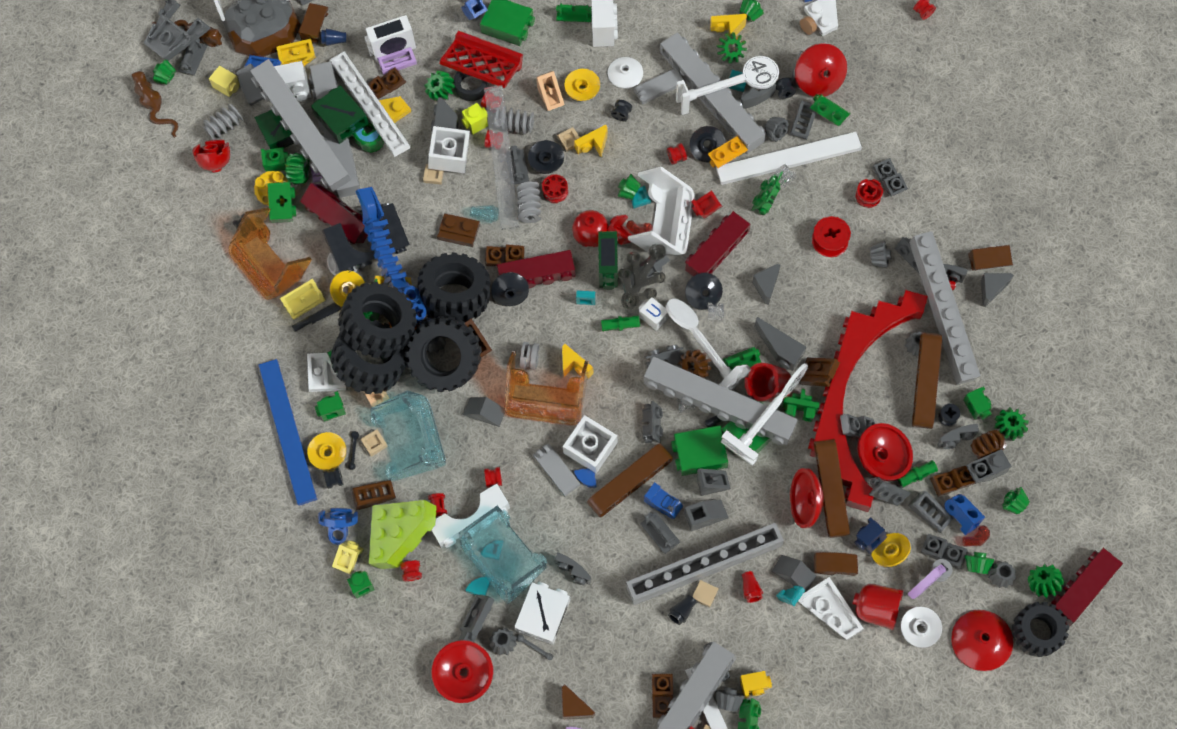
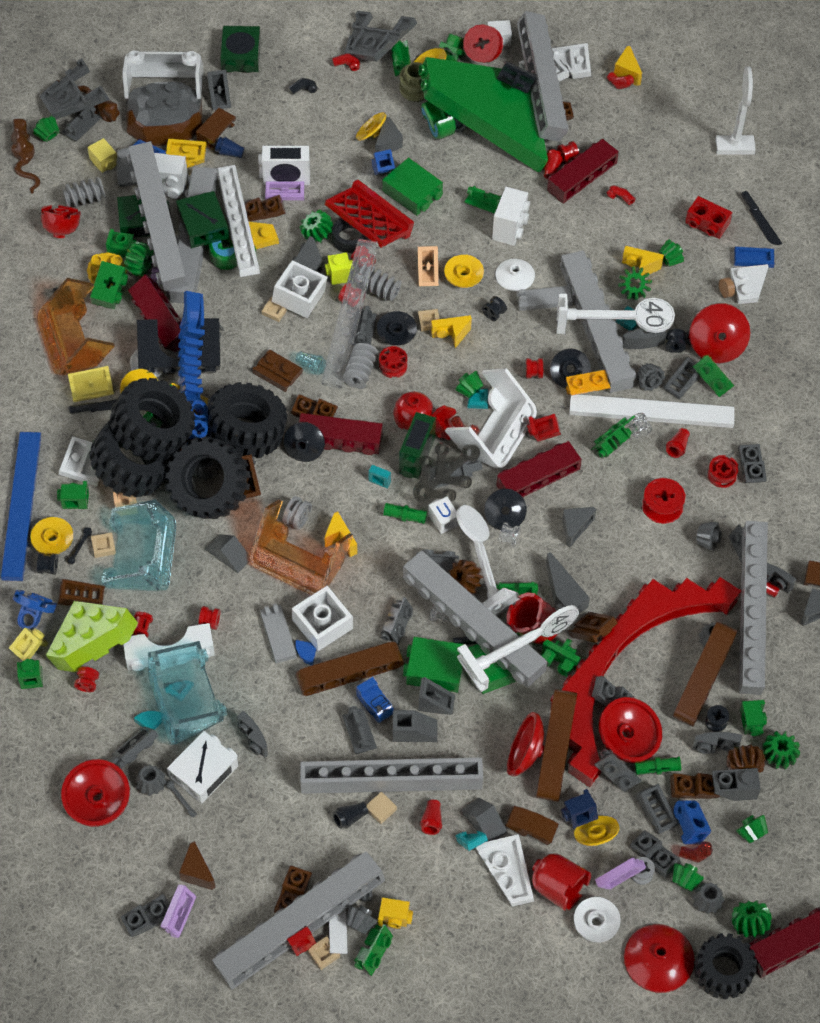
camera: 15 degrees right, 10 degrees down
(822, 181) = (677, 444): none -> red cone

